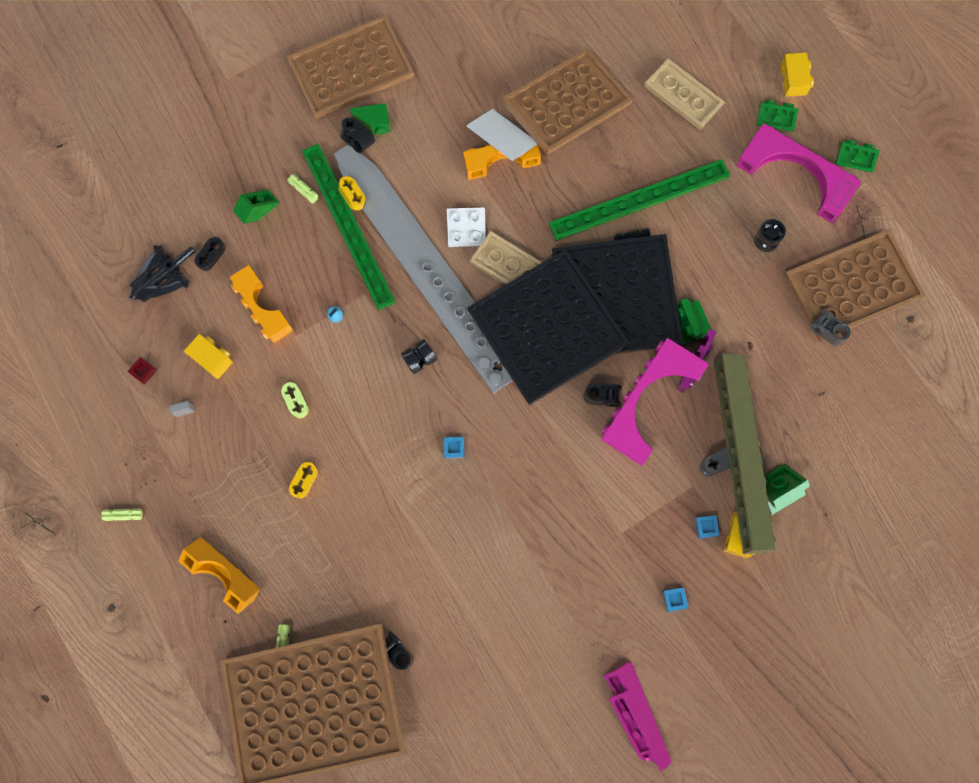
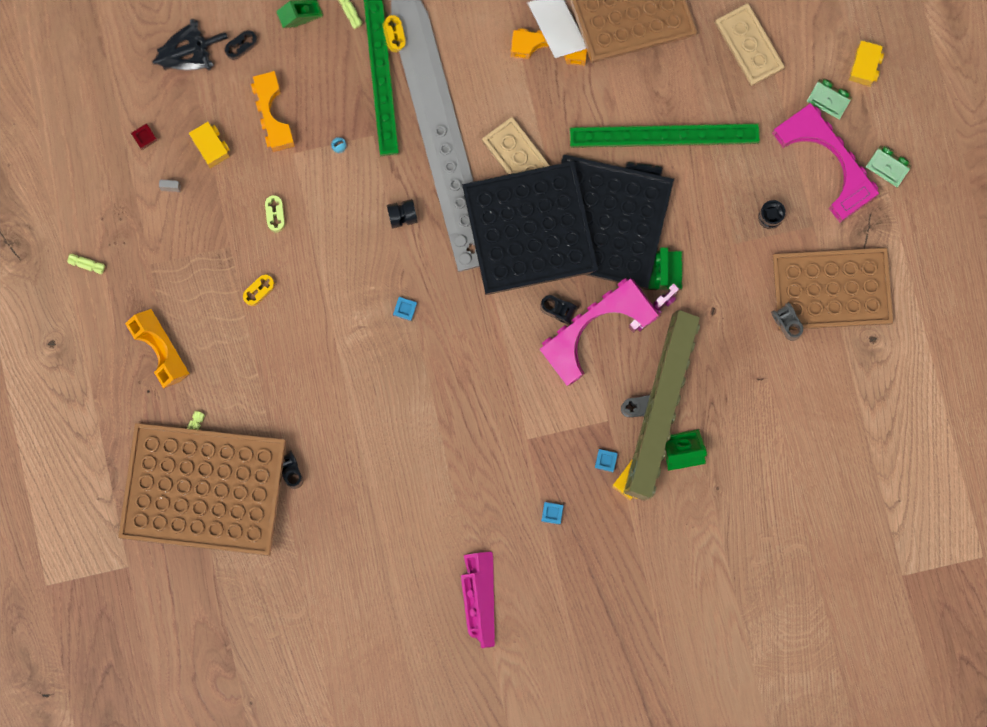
camera: 15 degrees right, 5 degrees up
(466, 226) = (490, 104): white hinge -> none

